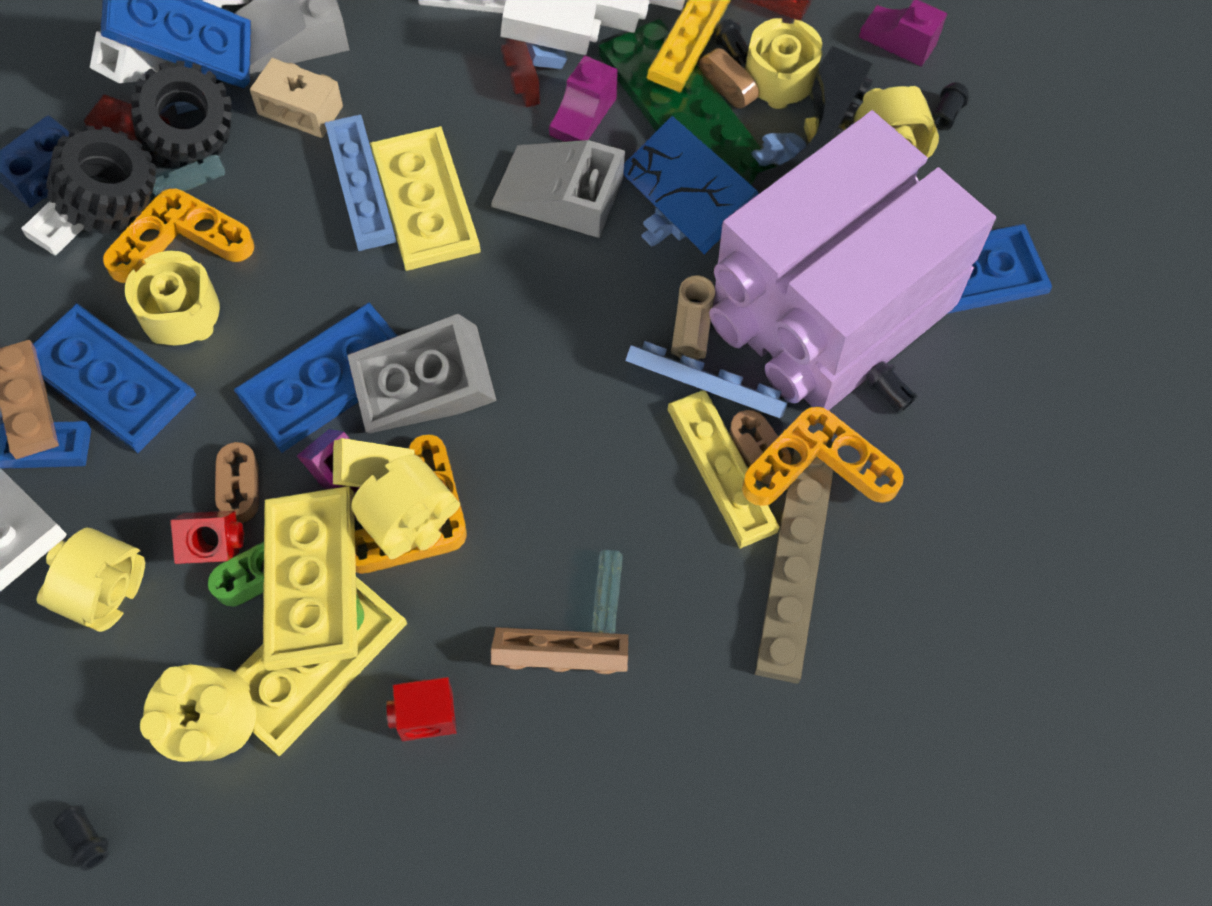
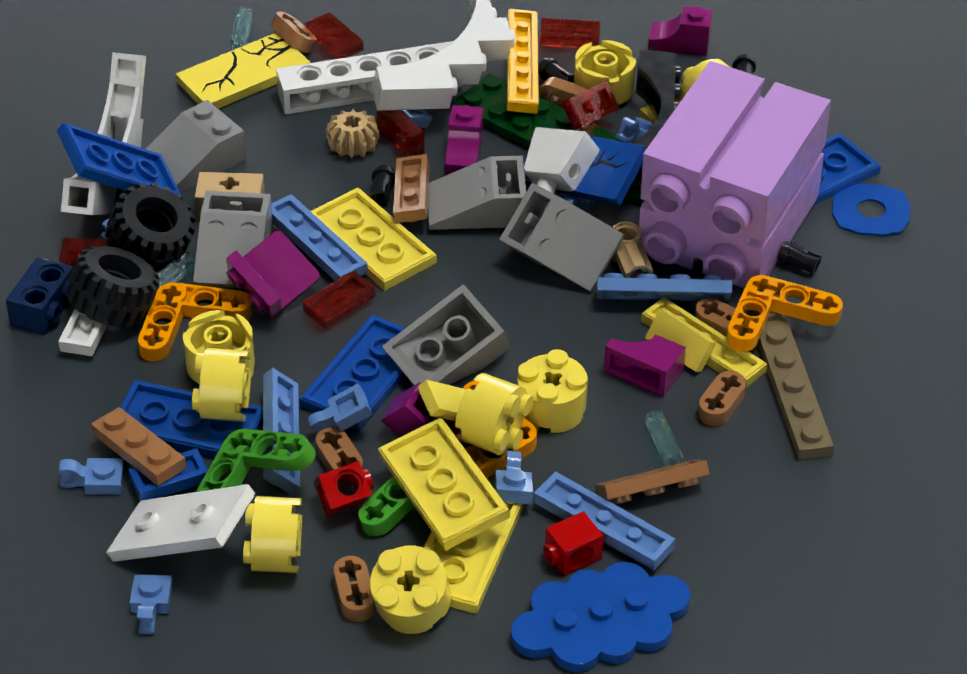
camera: 20 degrees left, 20 degrees down
(76, 490) = (238, 458): none -> bright green beam
(135, 355) = (223, 384): none -> light yellow brick
(149, 664) = (347, 589): none -> medium nougat beam
(187, 429) = (280, 415): none -> medium blue plate
(263, 430) = (344, 410): none -> medium blue plate
(266, 156) = (229, 224): none -> light grey slope
(277, 217) = (272, 273): none -> magenta bracket
(343, 270) = (339, 299): none -> clear red plate
(400, 597) = (512, 483): none -> medium blue plate
(409, 822) = (600, 616): none -> blue plate
(468, 54) = (352, 133): none -> tan gear
(473, 124) = (383, 178): none -> black pin
(479, 688) = (619, 527): none -> medium blue plate
(493, 148) = (411, 189): none -> medium nougat plate
(503, 462) = (557, 390): none -> light yellow brick
(617, 273) = (561, 237): none -> light grey slope
(642, 482) = (648, 363): none -> magenta arch
(658, 172) = (559, 158): none -> white torso
(692, 459) = (677, 330): none -> light yellow tile
(709, 564) = (728, 401): none -> medium nougat beam
(741, 102) = (590, 105): none -> clear red plate
(1021, 371) = (891, 222): none -> blue piece

